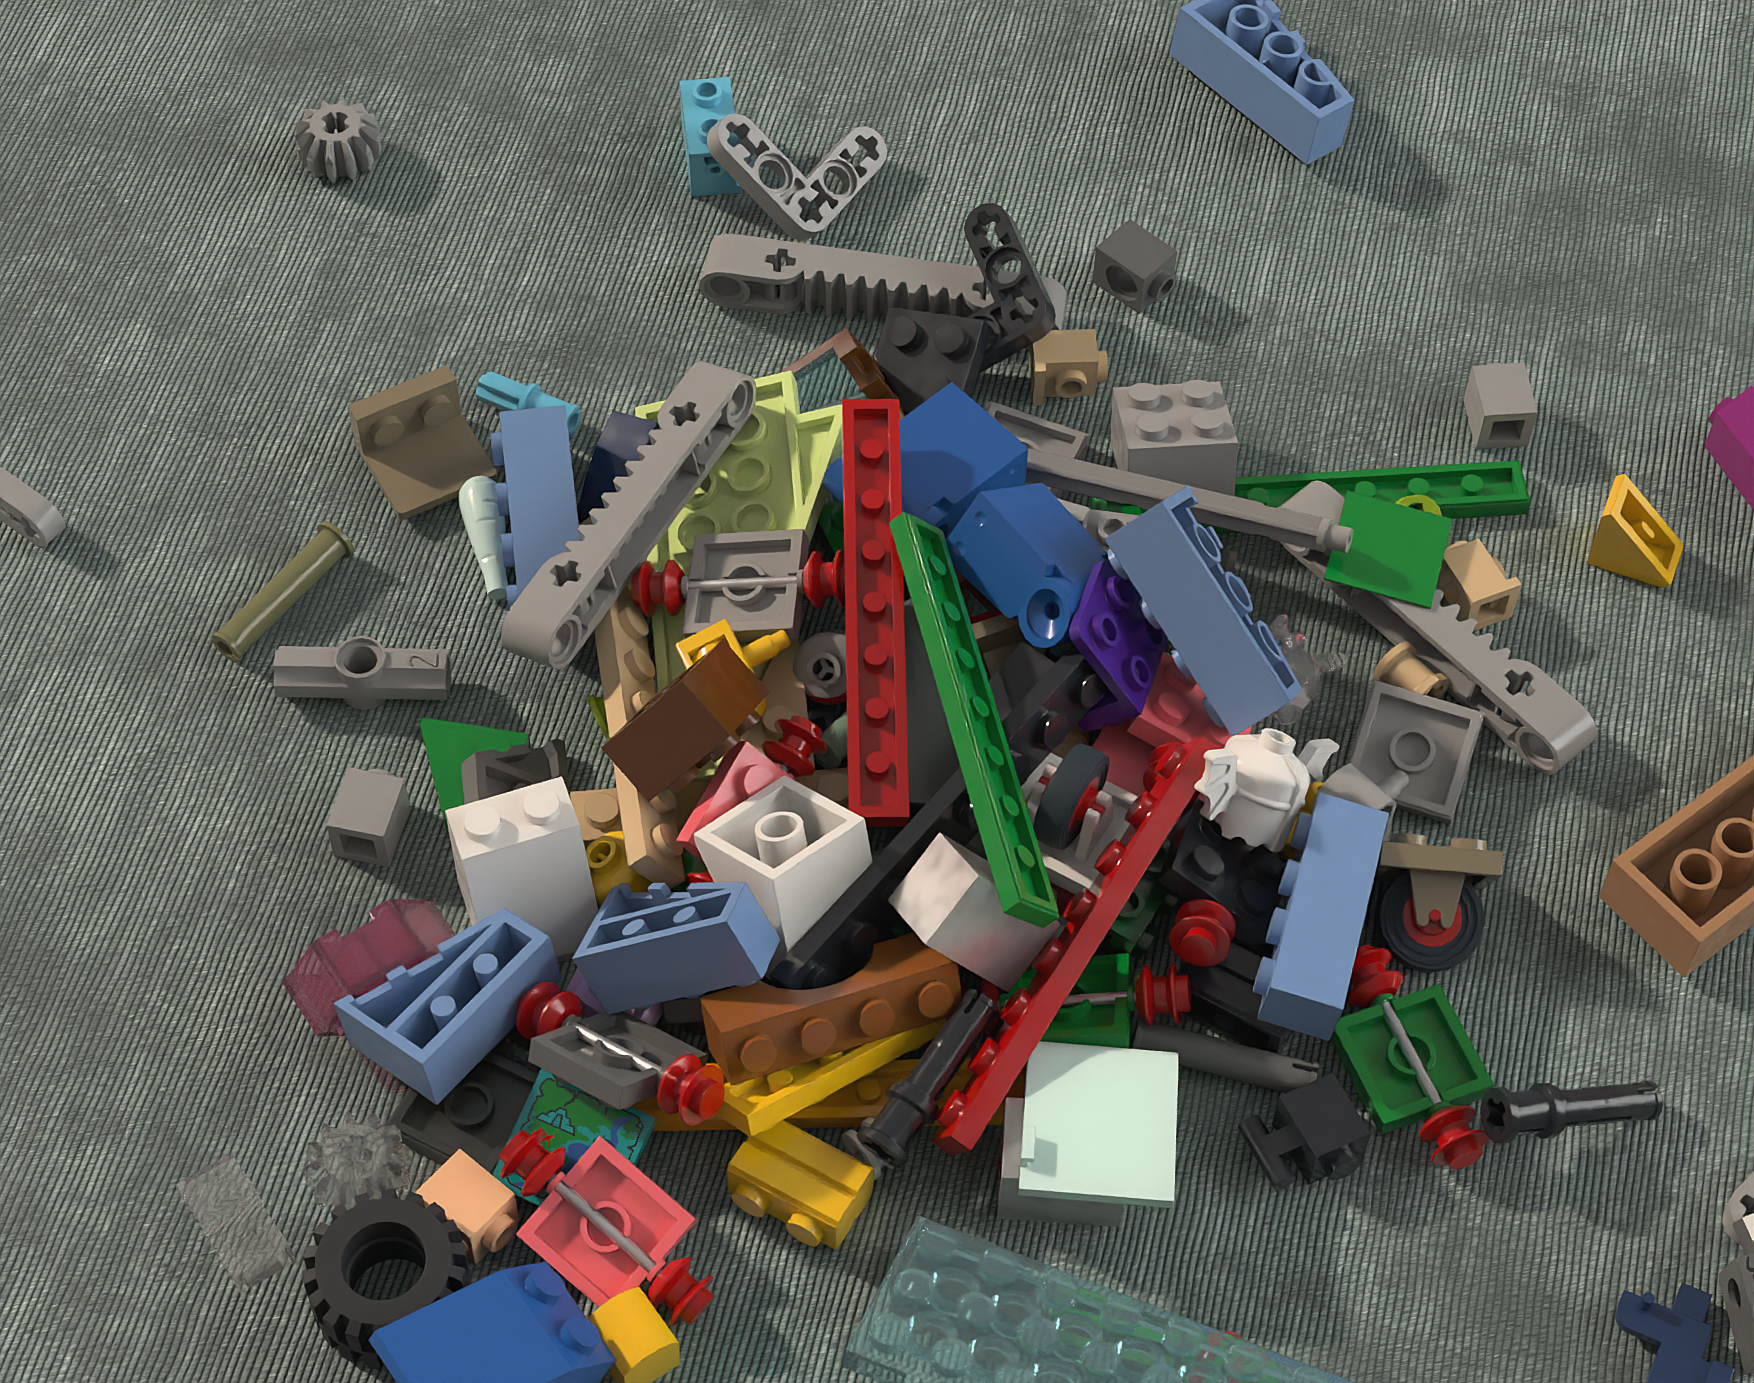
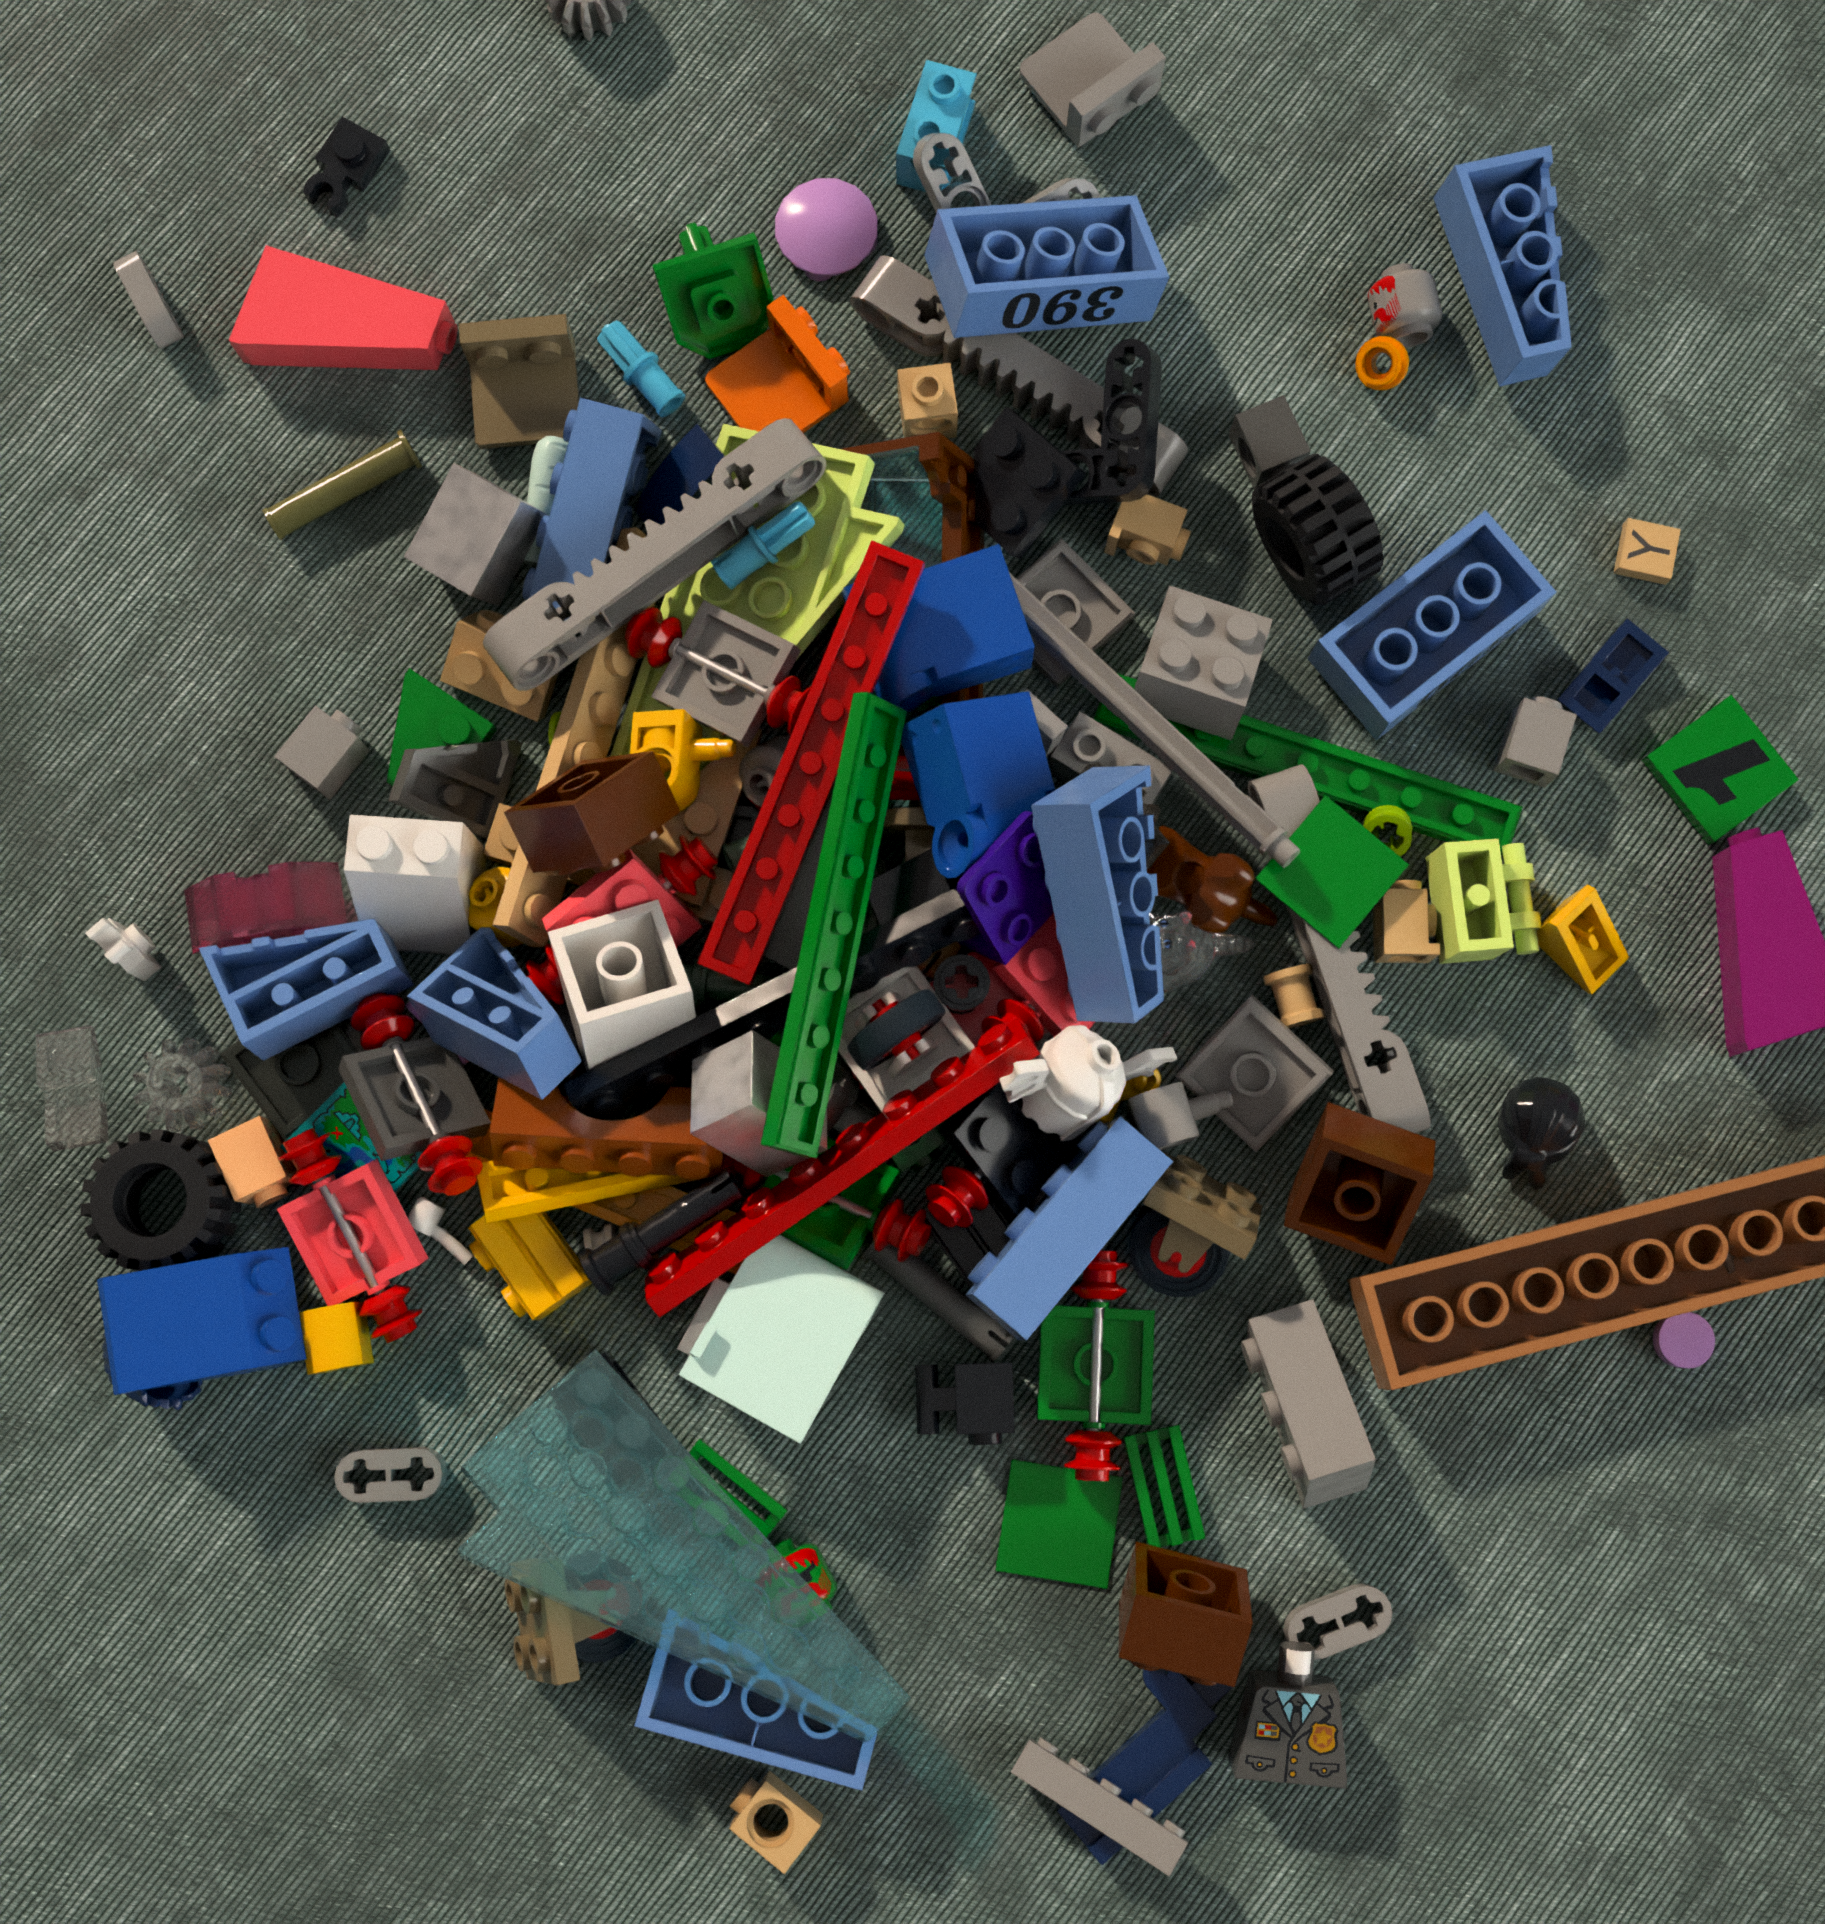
camera: 25 degrees right, 25 degrees up
(164, 337) = (347, 159): none -> black plate
(219, 457) = (336, 318): none -> coral slope
(241, 1058) = (126, 946): none -> white plate
(336, 670) = (349, 589): light grey piece -> none
(442, 572) = (475, 535): none -> flat silver piece
(510, 686) = (475, 672): none -> tan bracket
(577, 314) = (715, 292): none -> green piece
(646, 245) = (826, 227): none -> lavender dish
(663, 349) = (781, 374): none -> orange bracket
(677, 1185) = (425, 1218): none -> white hand
(728, 473) = (762, 544): none -> medium azure axle
(807, 325) = (927, 400): none -> tan brick
(827, 62) = (1092, 77): none -> light grey bracket
(868, 189) = (1045, 265): none -> medium blue brick
(1117, 743) = (975, 974): none -> black bush
(1186, 168) = (1366, 363): none -> light orange plate
(1192, 132) = (1405, 305): none -> light grey head
(1219, 301) = (1317, 529): none -> black tyre
(1301, 598) = (1209, 887): none -> reddish brown animal
(1356, 346) = (1431, 624): none -> medium blue brick
(1456, 1226) = (1058, 1525): none -> green piece
(1504, 240) = (1647, 551): none -> tan tile
(1529, 535) = (1472, 900): none -> yellowish green brick
(1536, 334) = (1612, 676): none -> dark blue slope
(1548, 1110) = (1179, 1475): black pin -> none
(1564, 790) = (1360, 1183): none -> reddish brown brick
(1578, 1178) = (1175, 1535): none -> green tile
(1635, 1006) = (1308, 1404): none -> light grey wedge
(1638, 1221) = (1184, 1615): none -> reddish brown brick
(1668, 375) = (1720, 770): none -> green tile
(1693, 697) = (1539, 1127): none -> black piece

